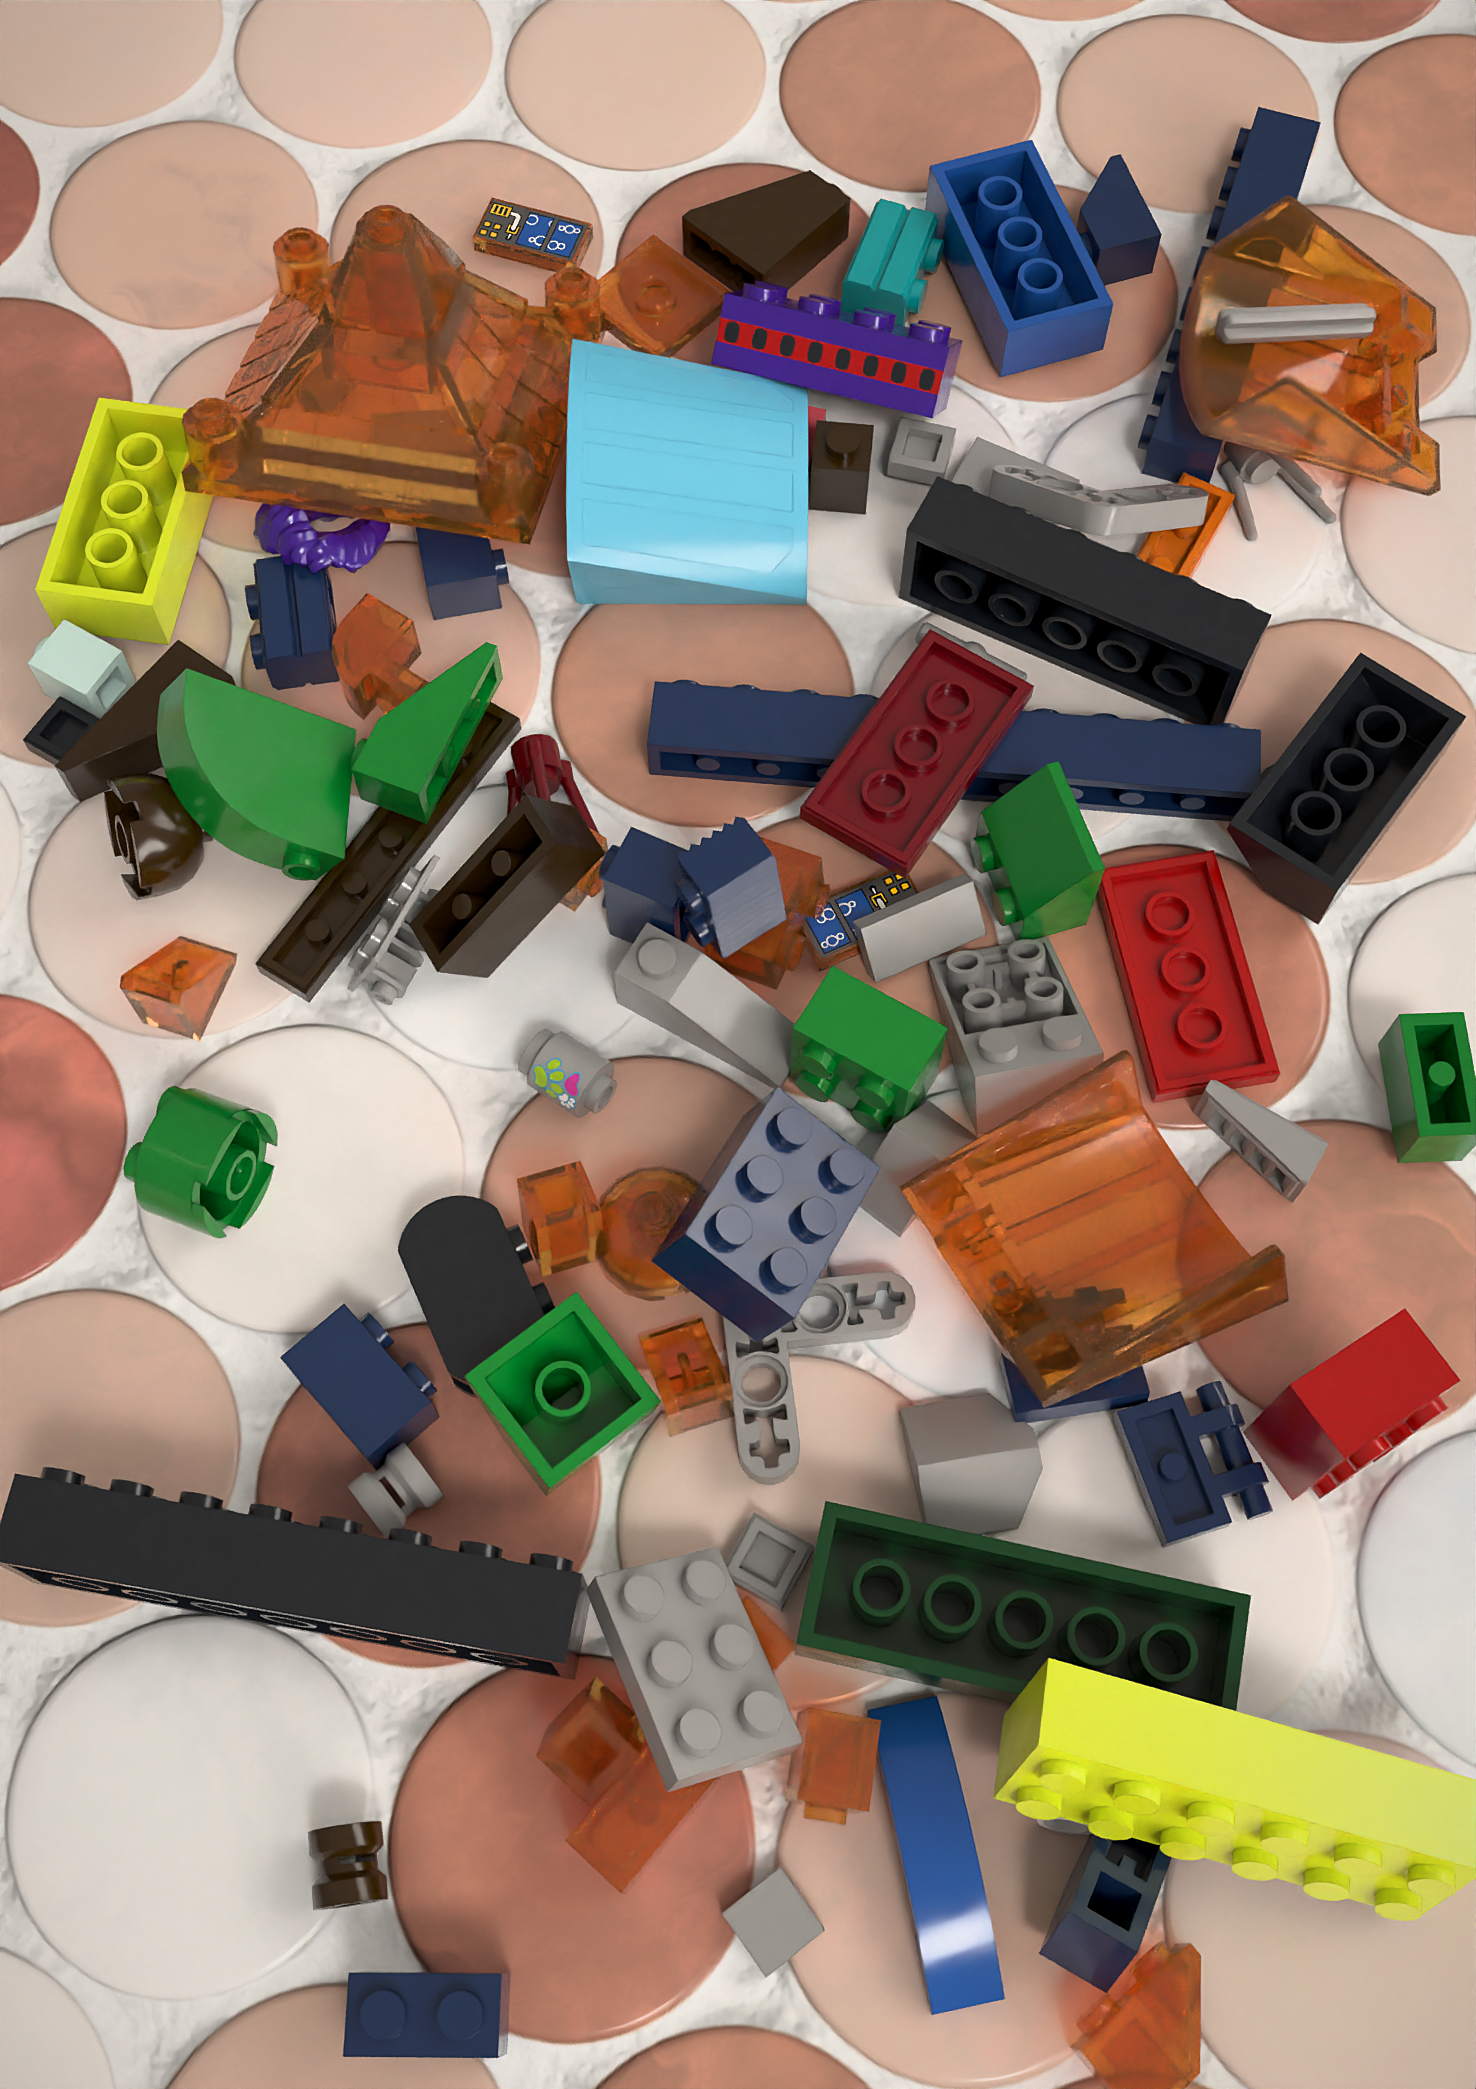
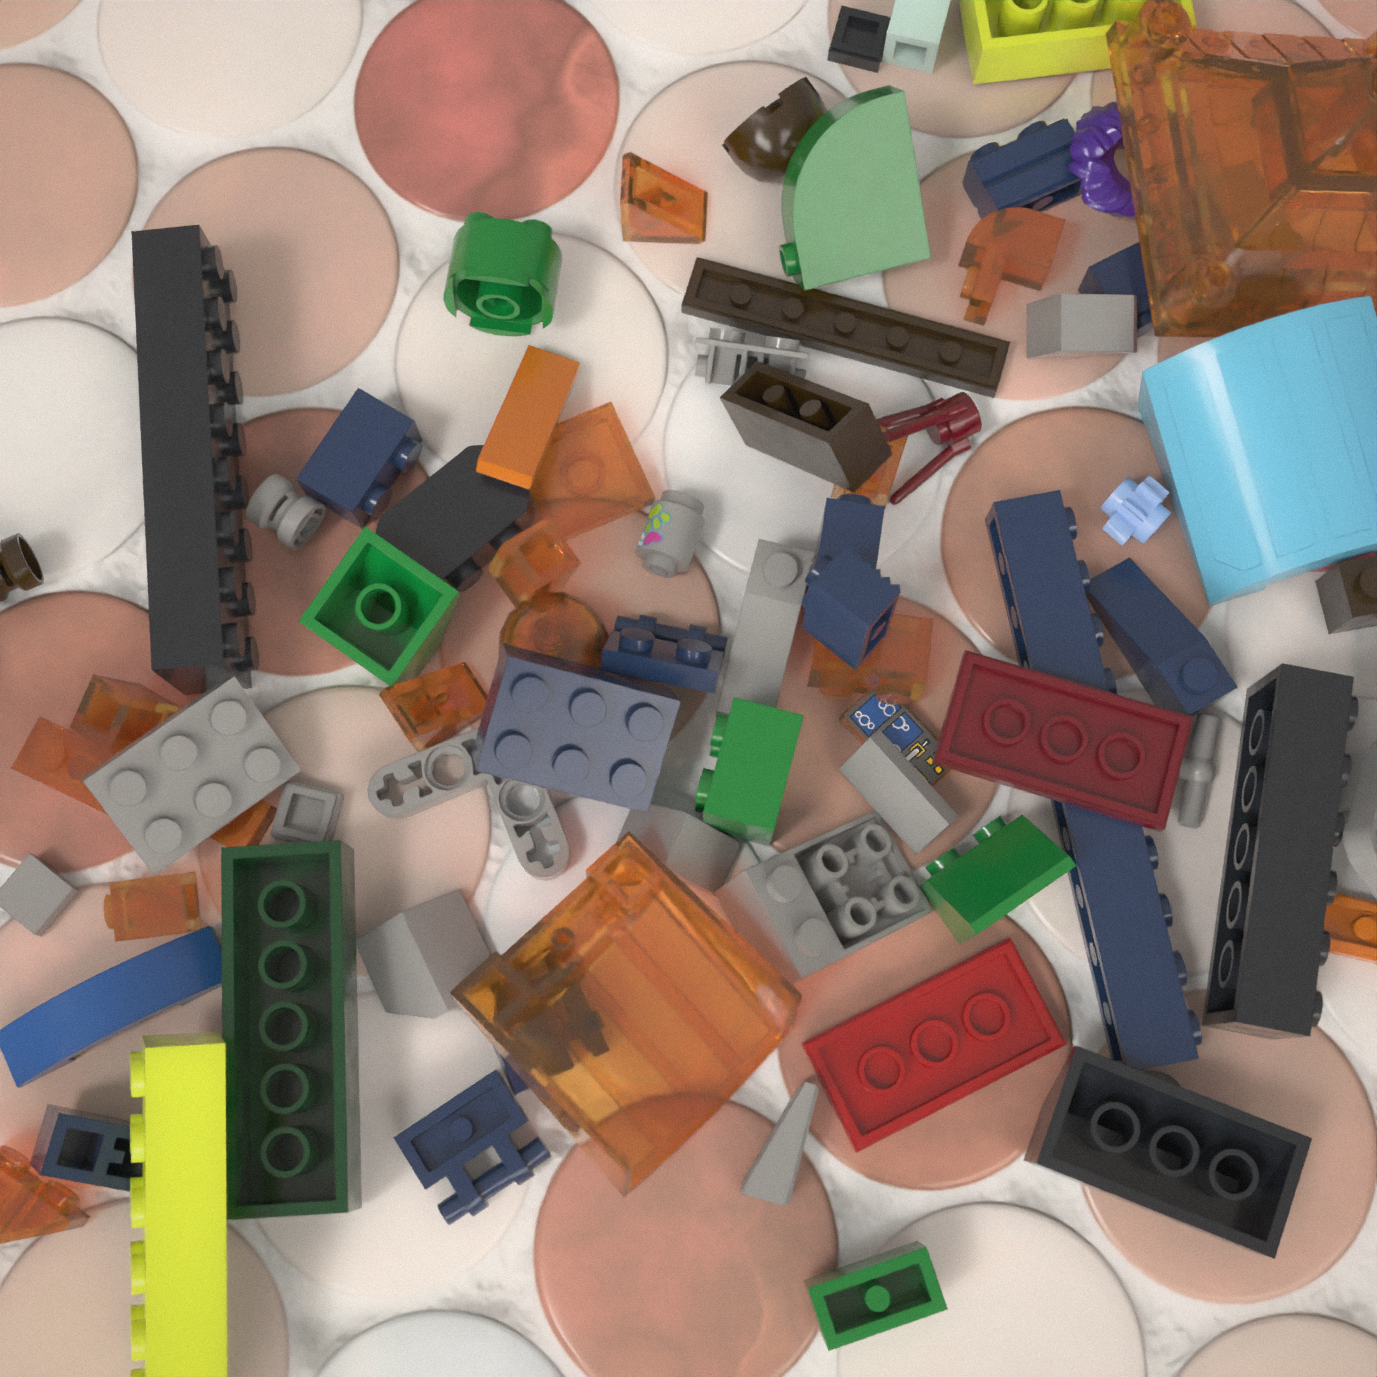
camera: 75 degrees right, 10 degrees up
(127, 734) = (929, 98): dark brown slope -> none
(385, 1179) = (528, 417): none -> orange tile
(425, 736) = (935, 315): green slope -> none
(460, 1145) = (590, 474): none -> clear orange tile
(486, 608) = (1081, 325): none -> light grey slope
(694, 628) = (1135, 510): none -> light blue gear
(705, 1108) = (664, 653): none -> dark blue plate
(838, 649) = (1158, 641): none -> dark blue slope
(1353, 1408) = (525, 1270): red brick -> none

